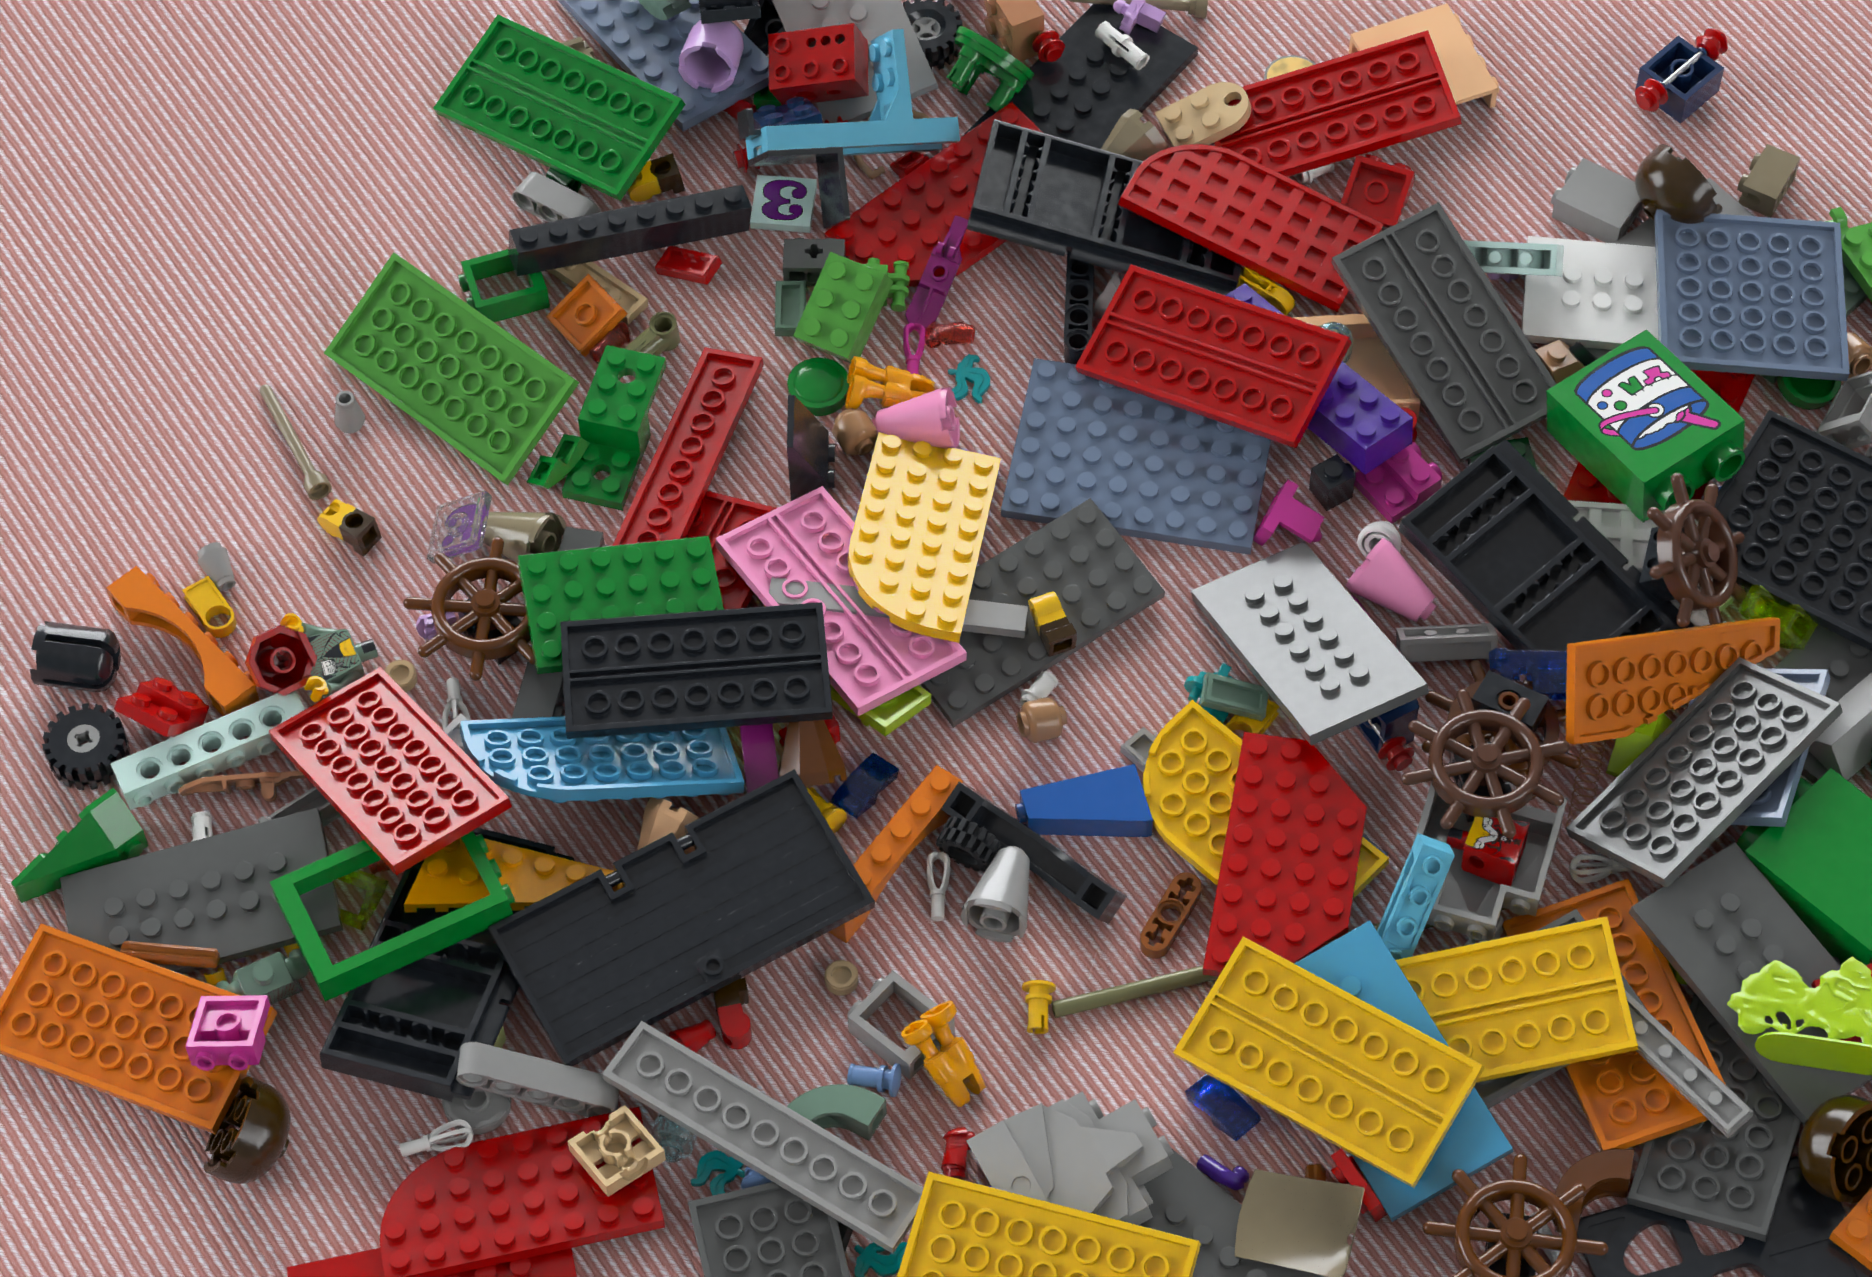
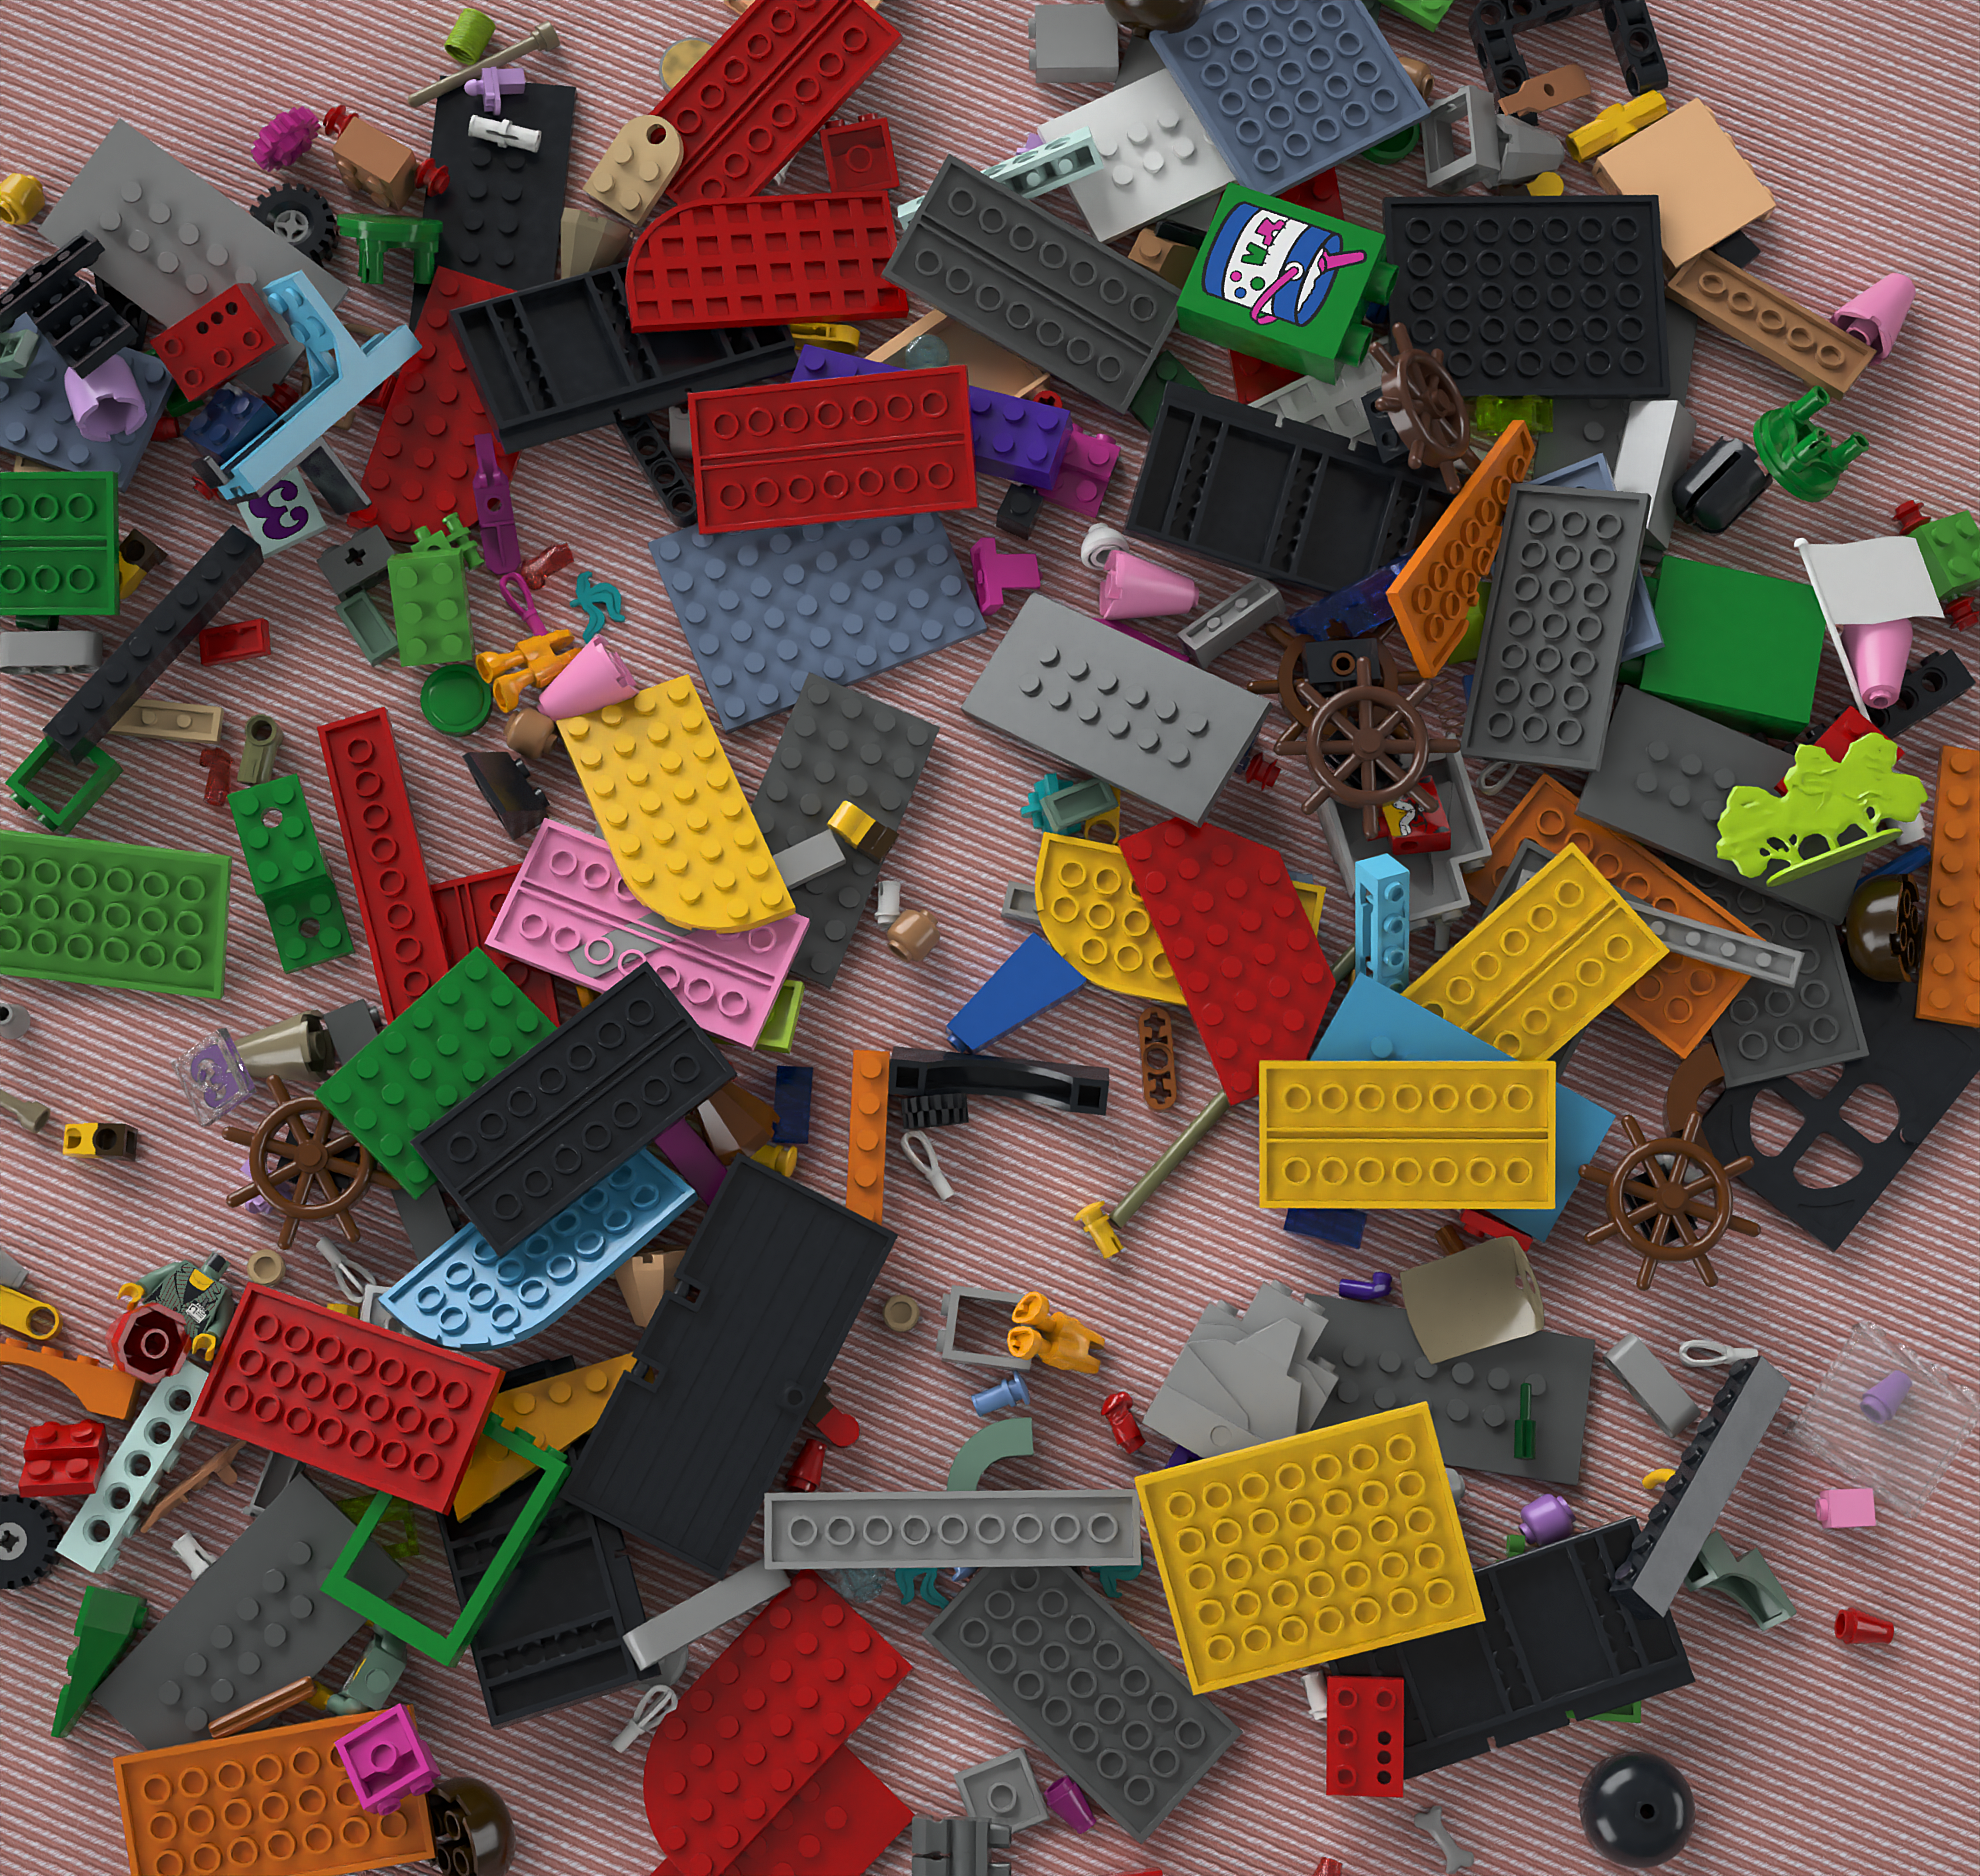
camera: 40 degrees left, 20 degrees up
(552, 469) = (260, 955): green slope -> none
(586, 315) = (173, 763): orange tile -> none
(614, 1147) = (820, 1628): tan brick -> none
(1000, 898) = (999, 1142): light grey cone -> none

